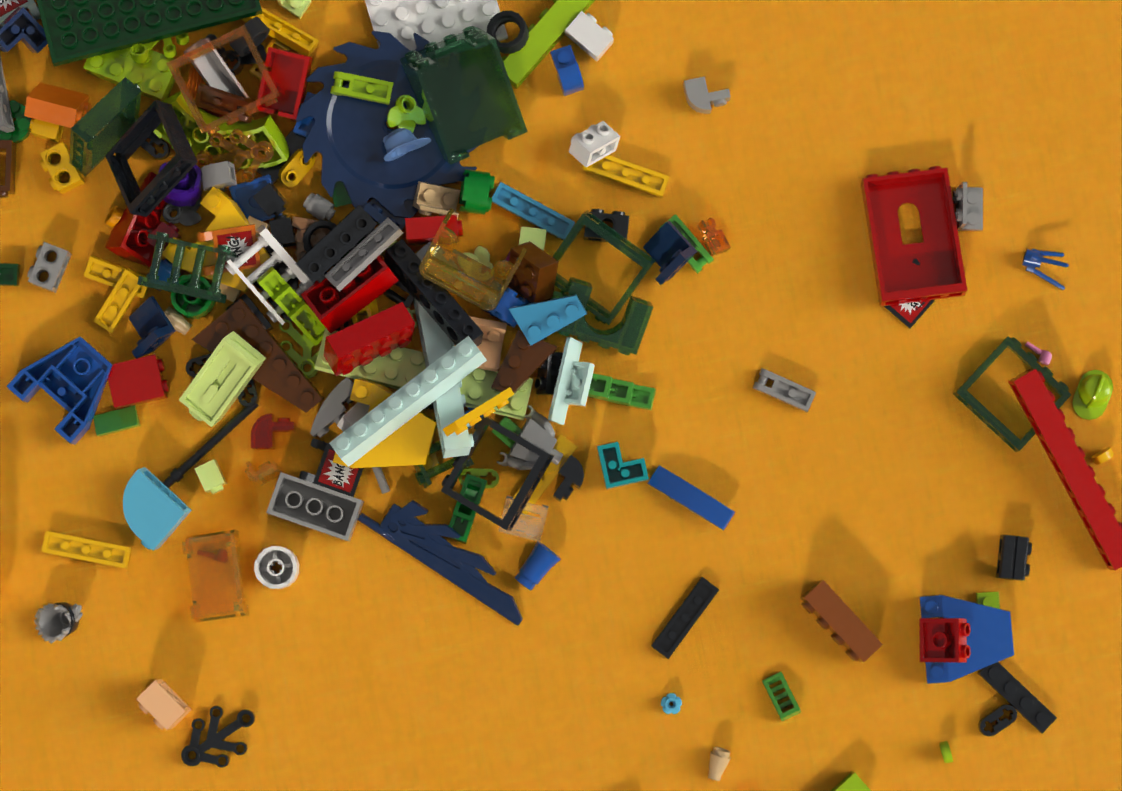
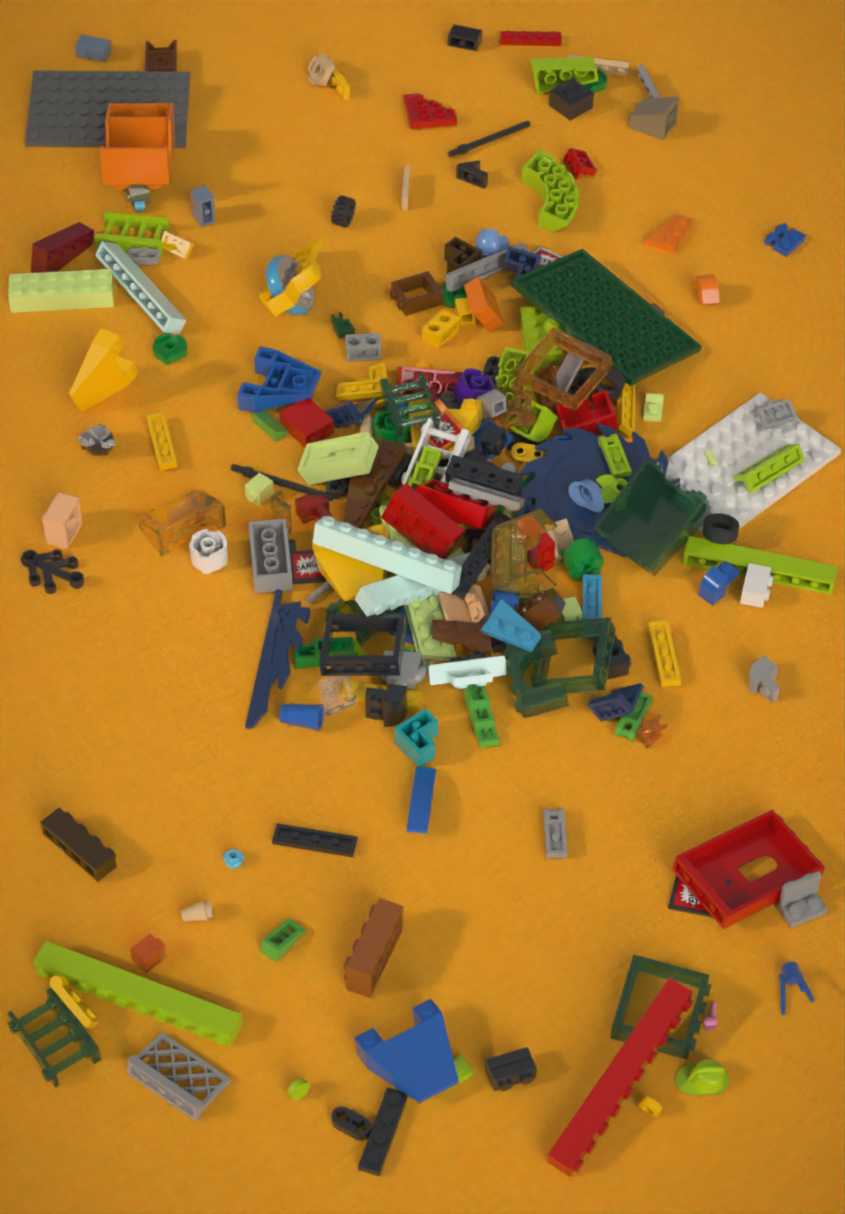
camera: 65 degrees right, 35 degrees down
(104, 126) = (491, 299): clear green window -> none
(146, 201) = (483, 354): black window -> none
(152, 509) = (213, 462): medium azure brick -> none
(474, 416) = (405, 602): yellow plate -> none
(594, 143) = (672, 616): white brick -> none
(944, 640) = (401, 1026): red plate -> none

